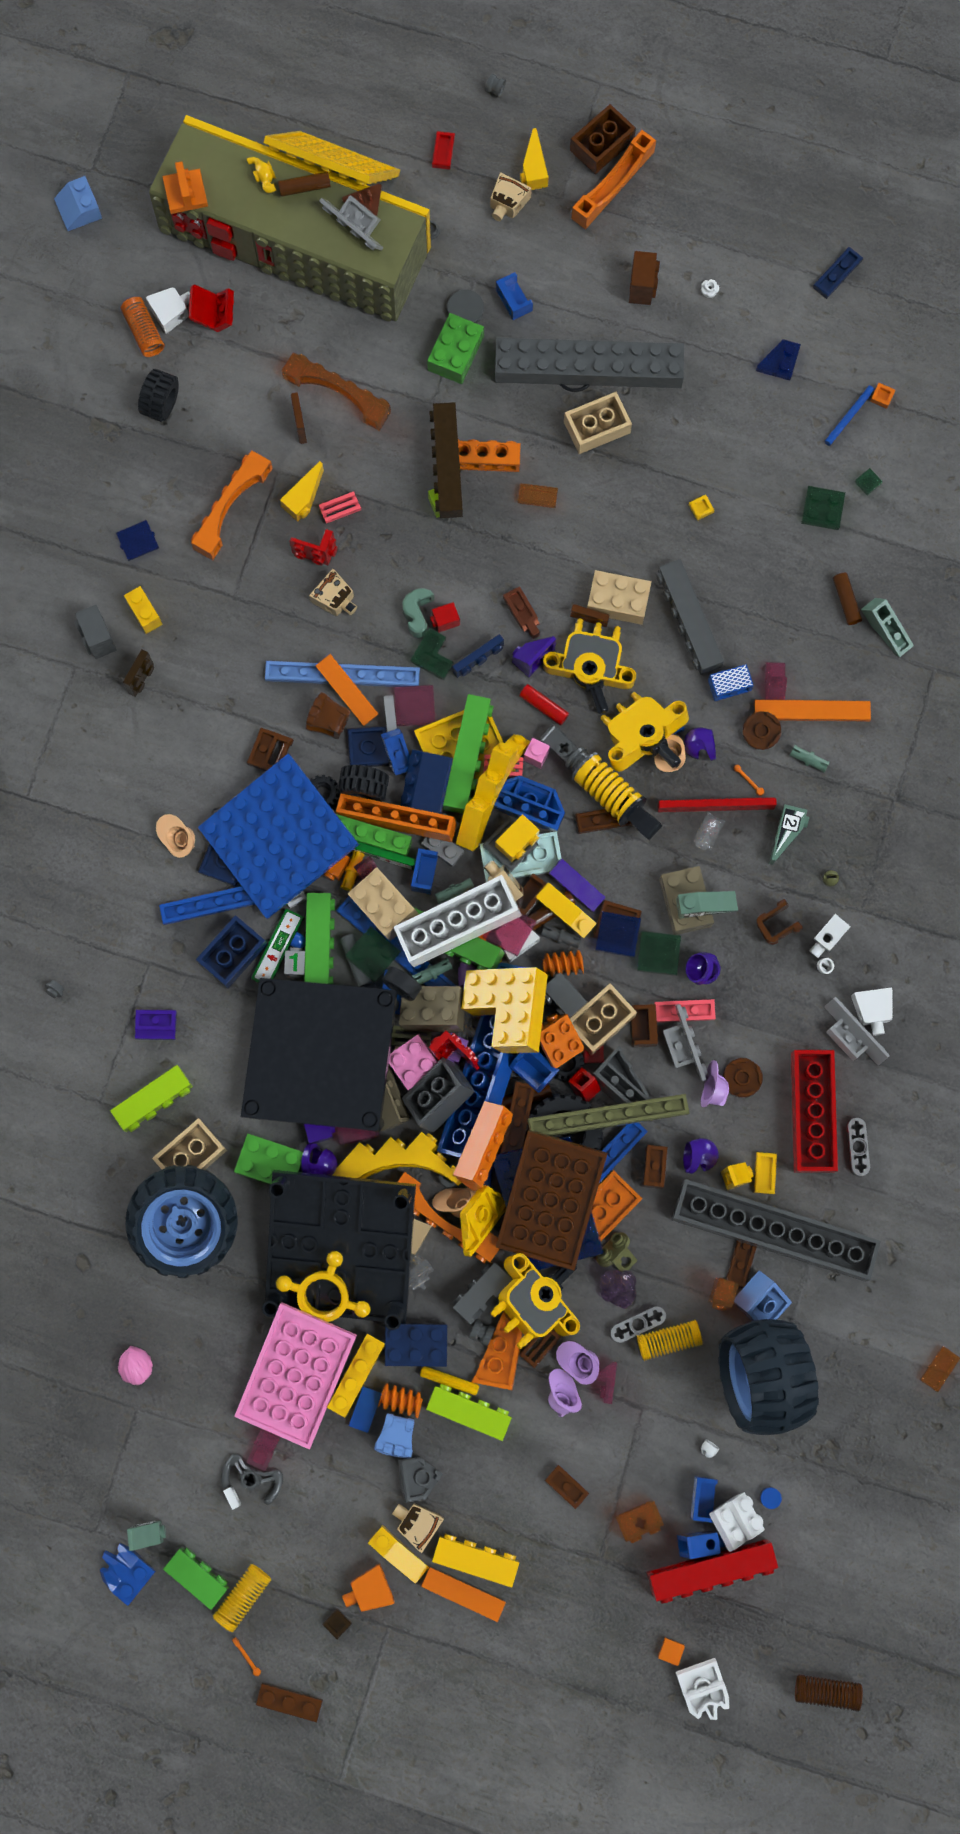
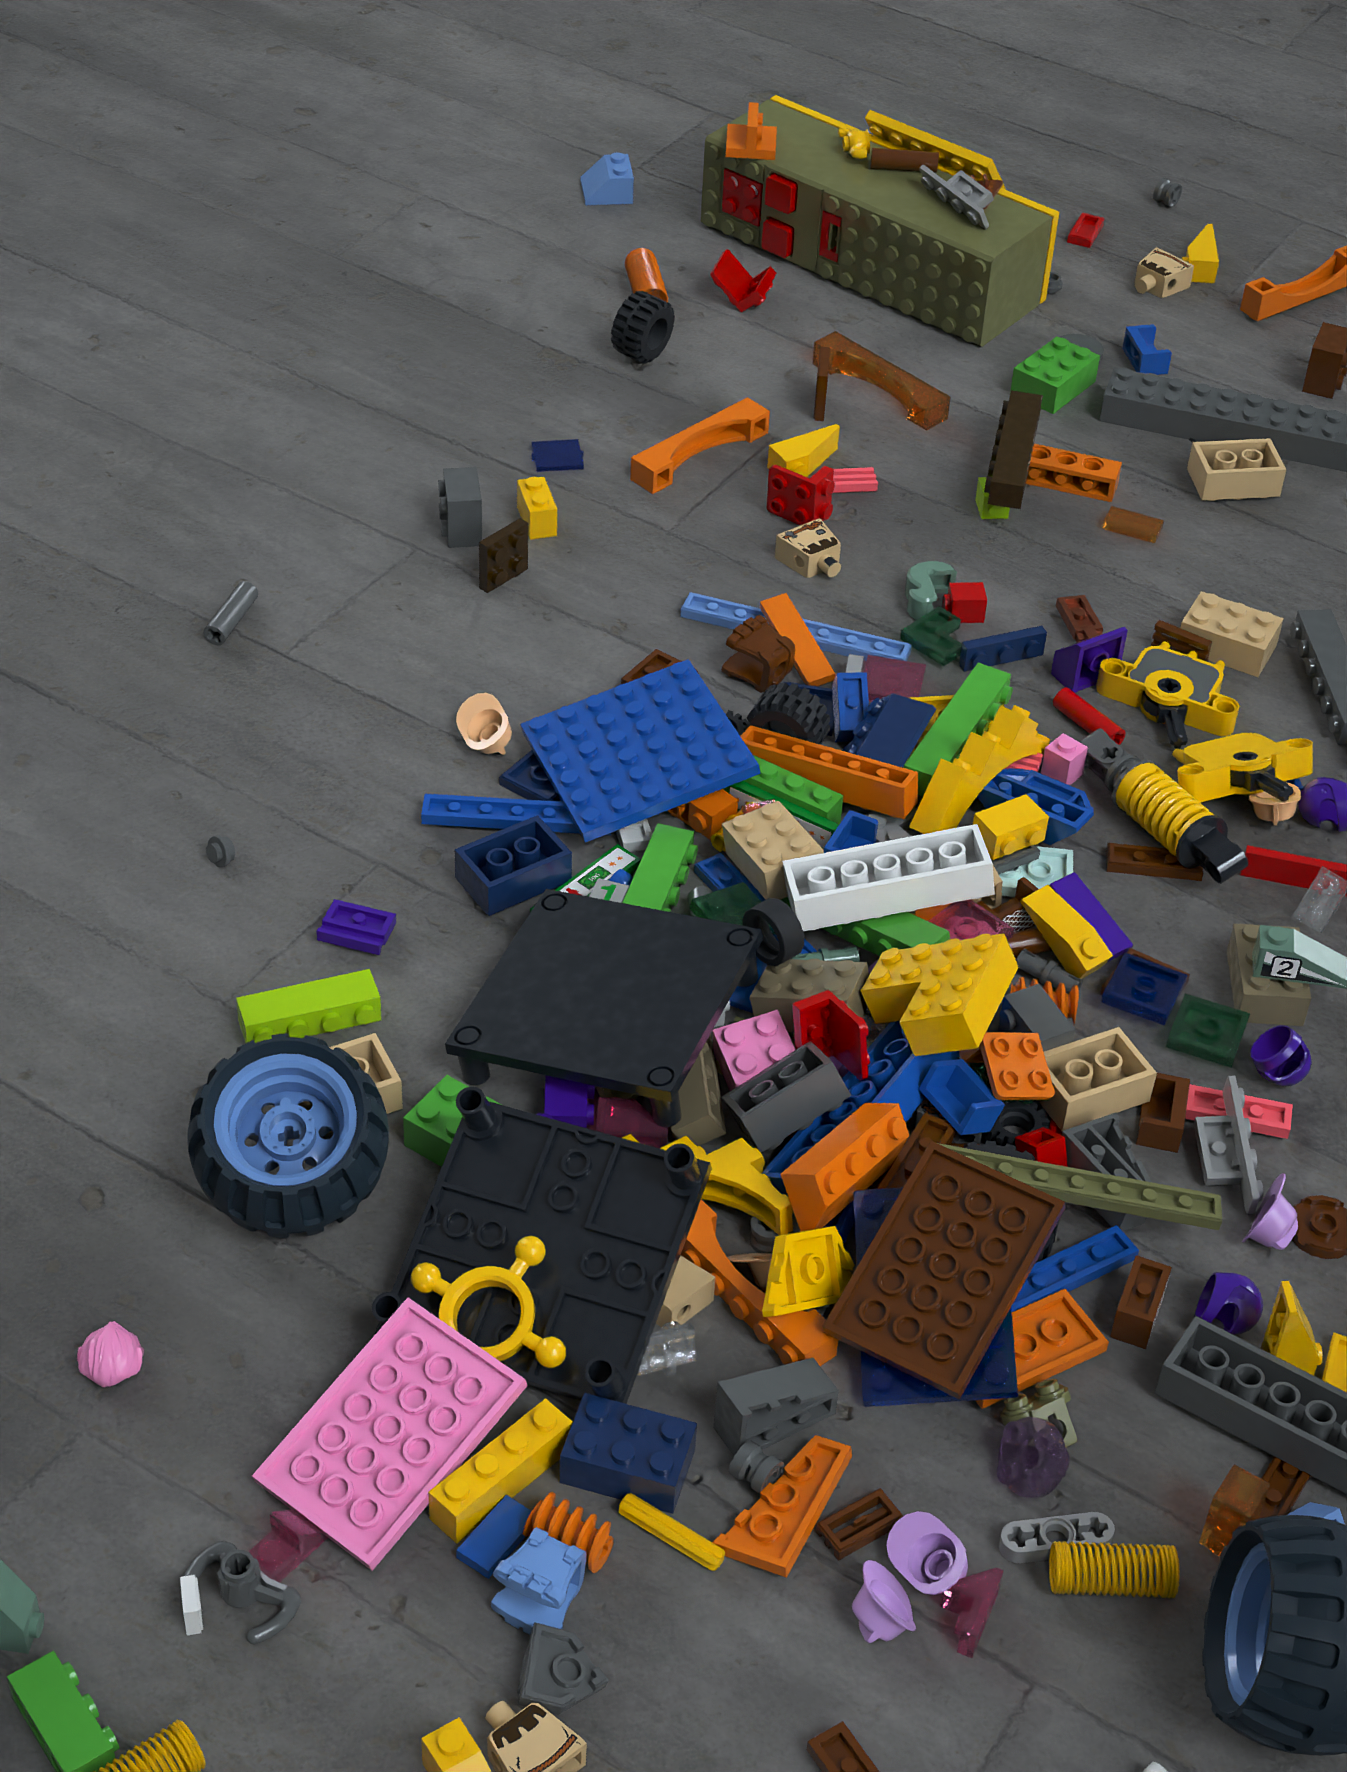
camera: 15 degrees right, 35 degrees down
(169, 308) = (685, 275): white torso -> none
(469, 1413) = (693, 1588): lime brick -> none
(535, 1301) = (873, 1431): piece -> none
(602, 139) = (1295, 249): reddish brown brick -> none

